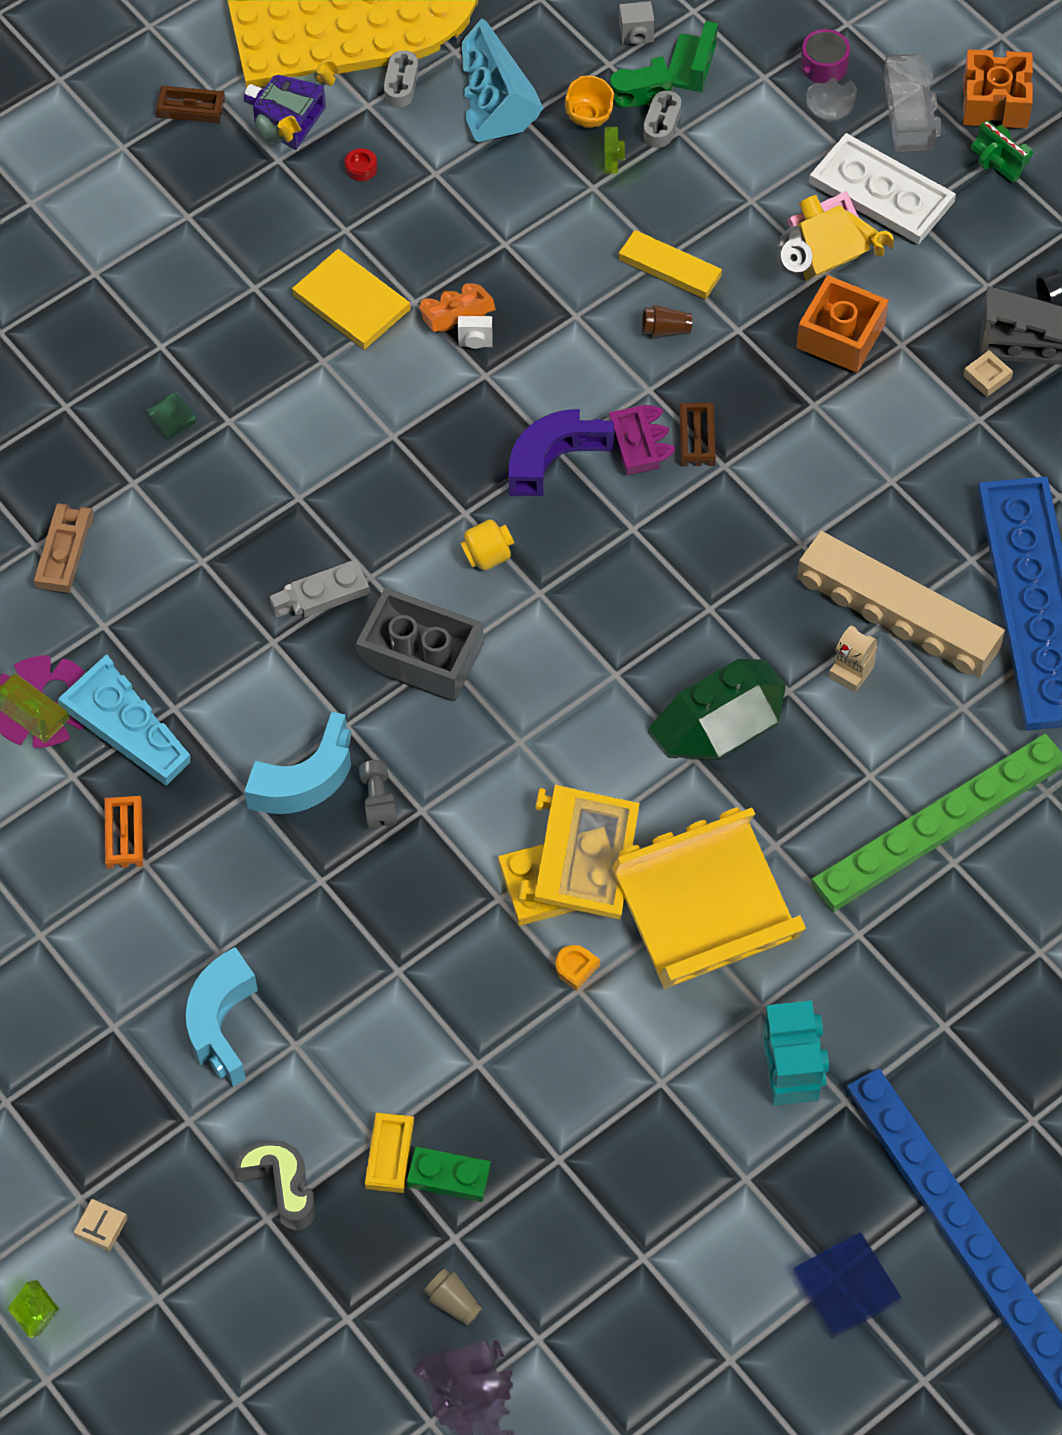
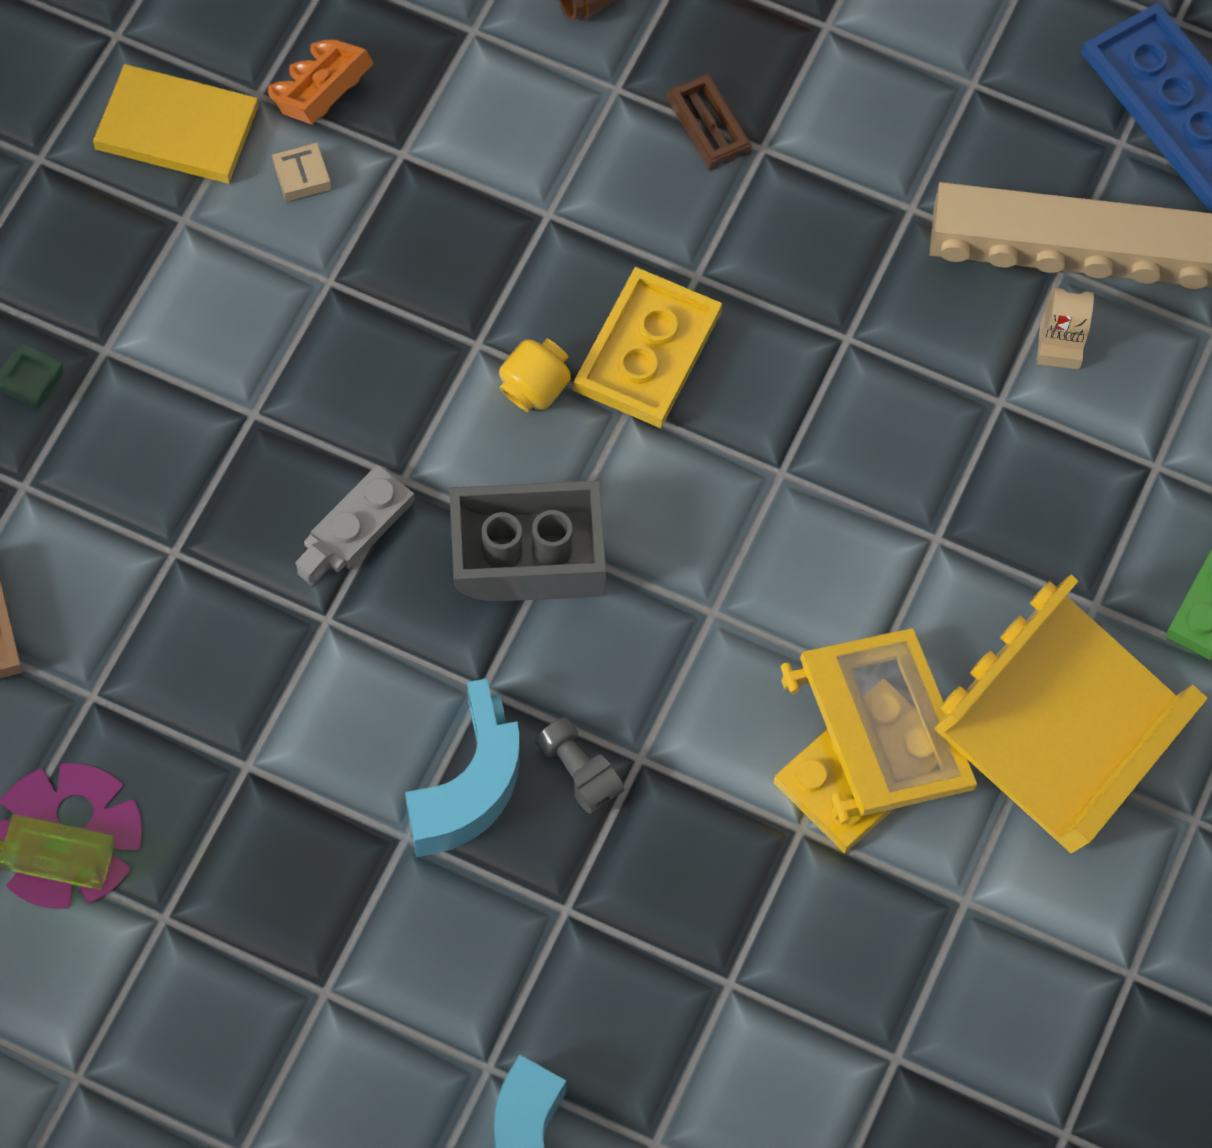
camera: 30 degrees left, 5 degrees up
(116, 714) = (173, 808): medium azure wing -> none
(125, 858) = (295, 1001): orange tile -> none
(413, 360) = (301, 172): none -> tan tile
(475, 331) = (363, 102): white plate -> none
(547, 440) = (534, 201): dark purple arch -> none
(571, 558) = (647, 347): none -> yellow plate
(575, 965) = (945, 873): light orange tile -> none
(639, 438) = (643, 158): magenta plate -> none
(721, 712) = (943, 469): dark green wedge -> none

